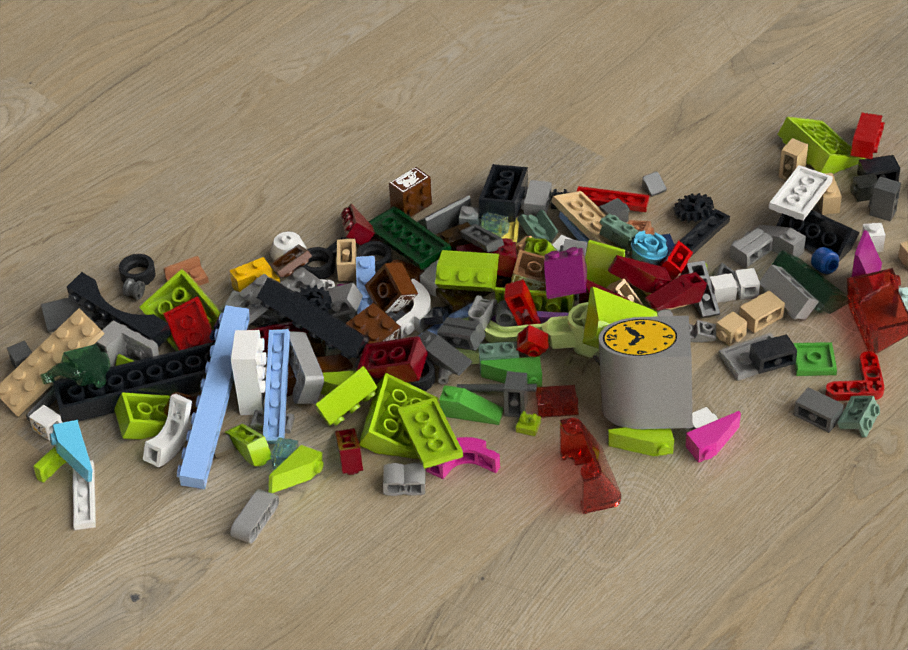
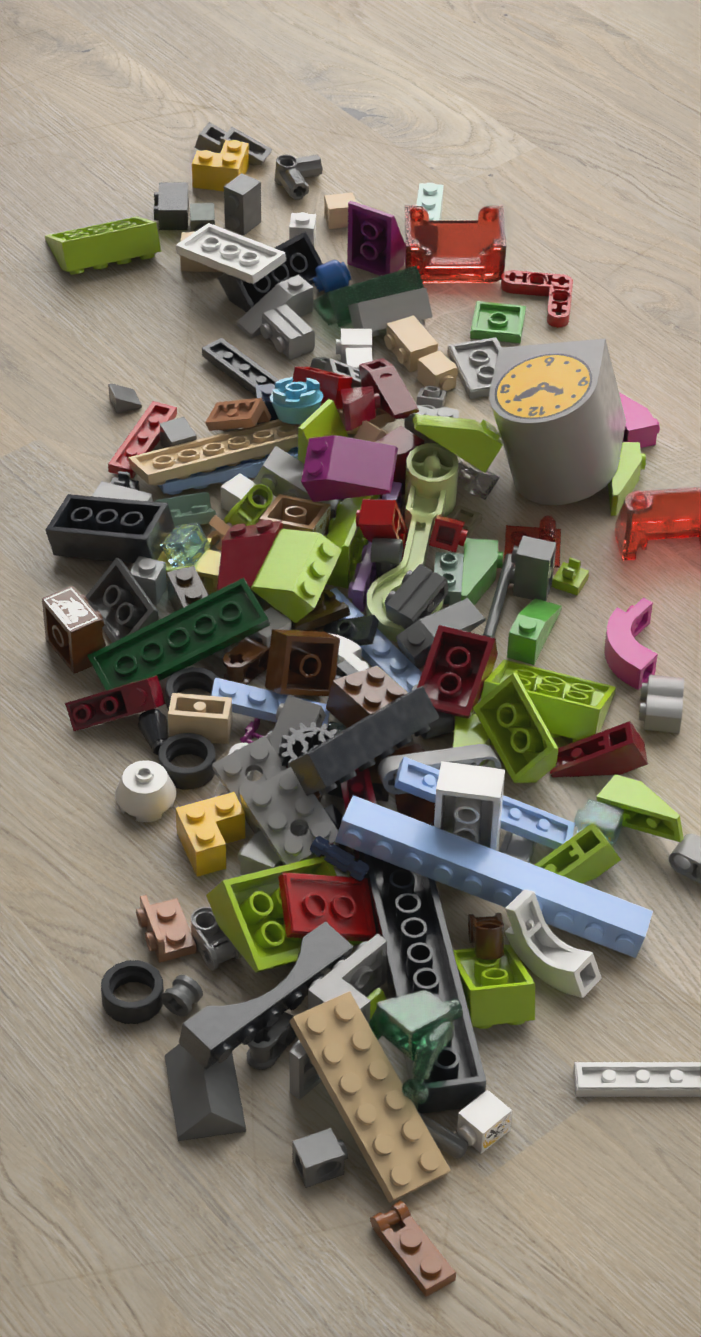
camera: 85 degrees left, 0 degrees up
(48, 465) = (575, 1113): lime plate -> none
(71, 447) = (576, 1064): medium azure slope -> none
(290, 260) = (201, 770): reddish brown plate -> none
(430, 433) = (603, 652): lime plate -> none
(482, 238) = (231, 547): dark grey plate -> none
(482, 310) = (378, 573): light grey piece -> none
(618, 231) = (253, 420): sand green bracket -> none
(693, 207) = (194, 365): black gear -> none
(773, 353) = (497, 333): black brick -> none
(791, 156) = (140, 261): tan brick -> none
(818, 409) = (595, 323): dark grey brick -> none
(859, 414) = (604, 301): sand green bracket -> none
(867, 135) = (112, 195): red brick -> none

